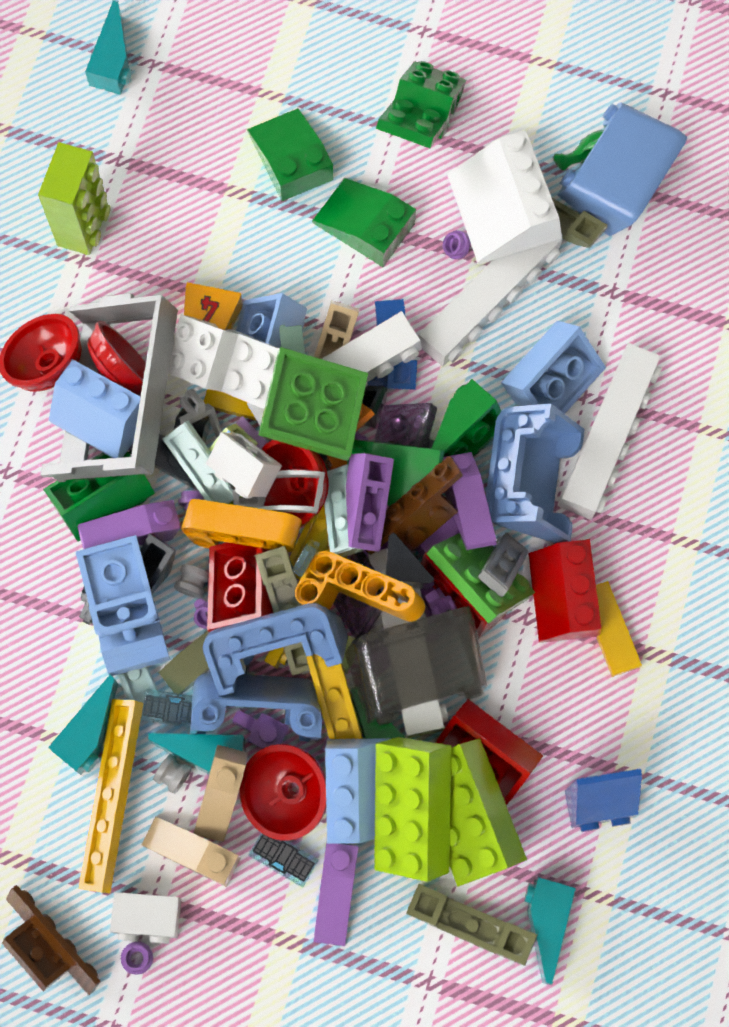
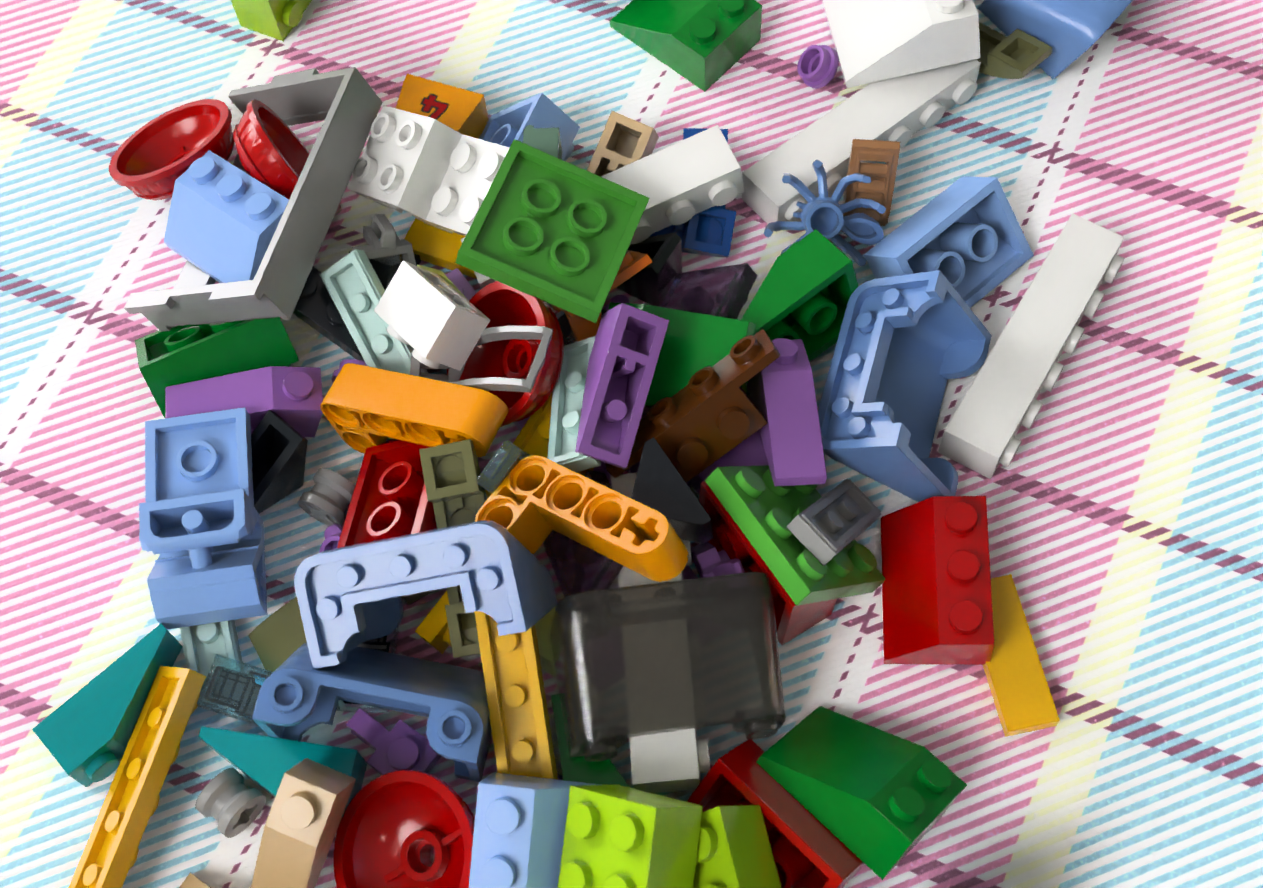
camera: 15 degrees right, 10 degrees down
(475, 362) = (827, 215): none -> medium blue animal
(500, 333) = (881, 175): none -> medium nougat slope
(534, 716) = (863, 784): none -> green slope

